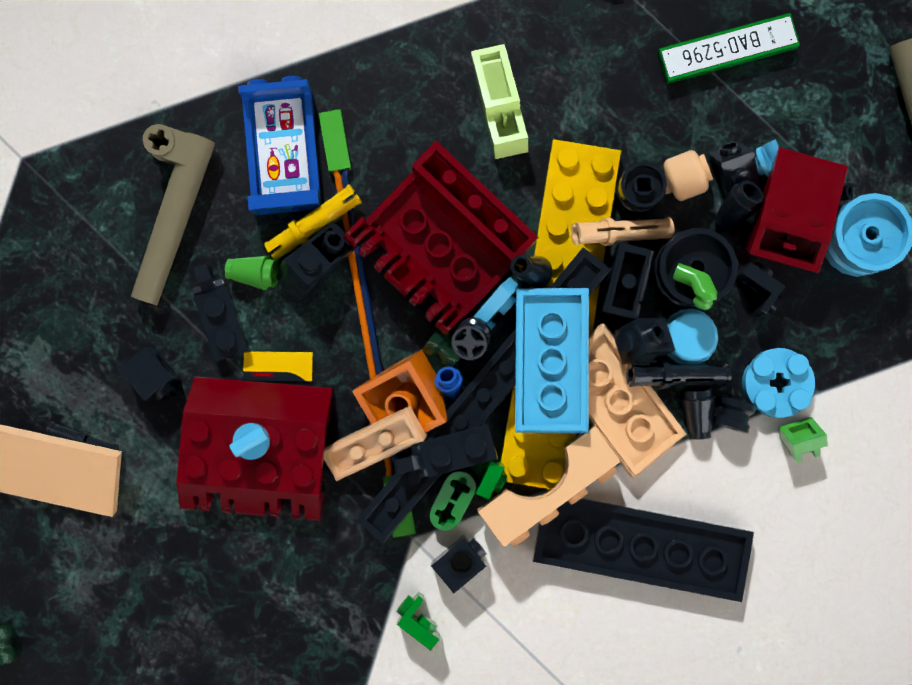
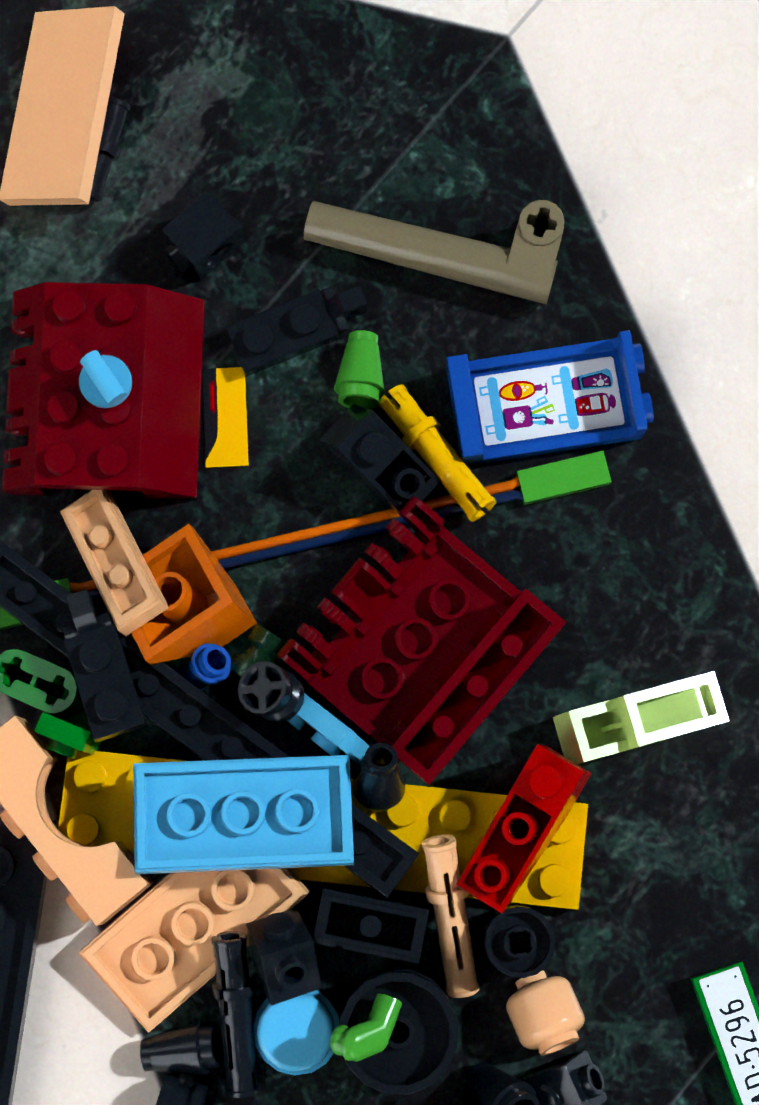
camera: 90 degrees right, 5 degrees down
(570, 178) = (523, 827): none -> red slope

